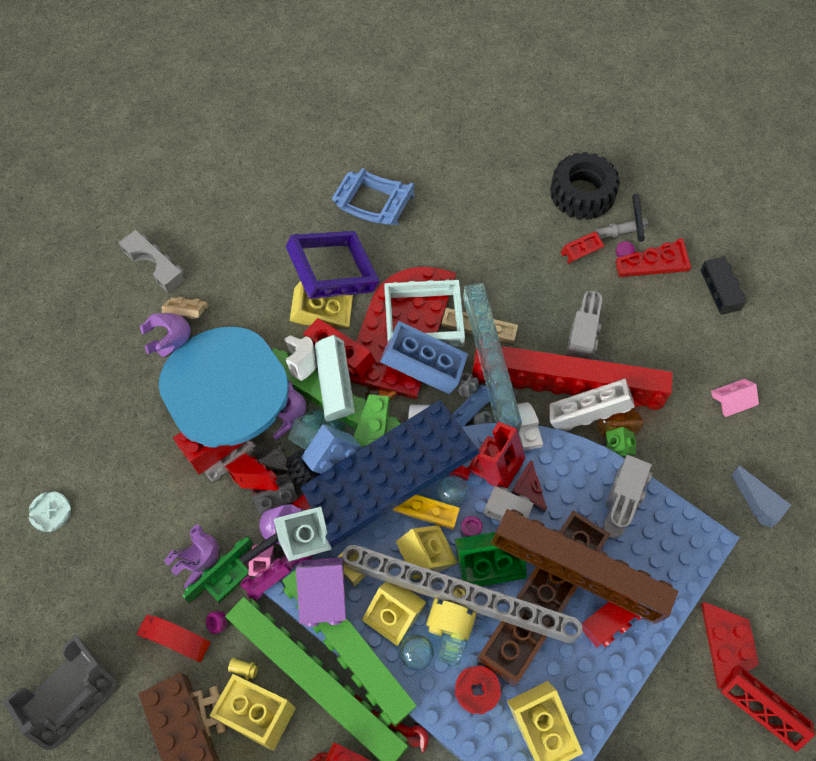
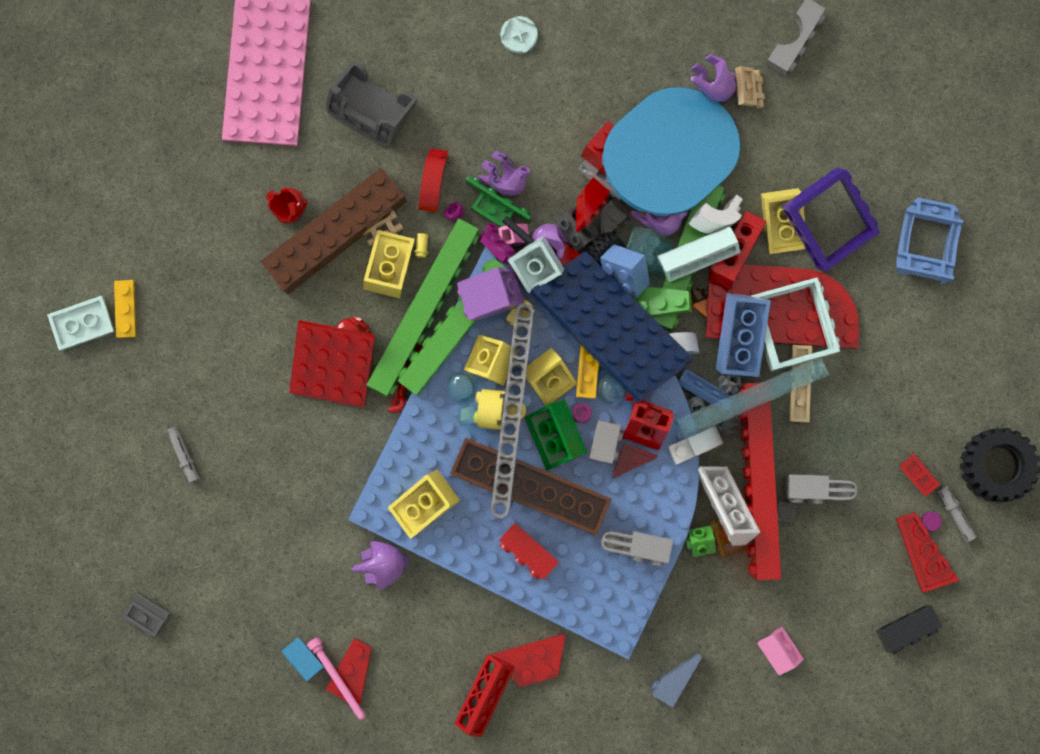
camera: 80 degrees right, 20 degrees up
(464, 693) = (451, 438): red plate -> none
(585, 567) = (555, 511): reddish brown brick -> none
(638, 217) = (973, 529): black bar -> none

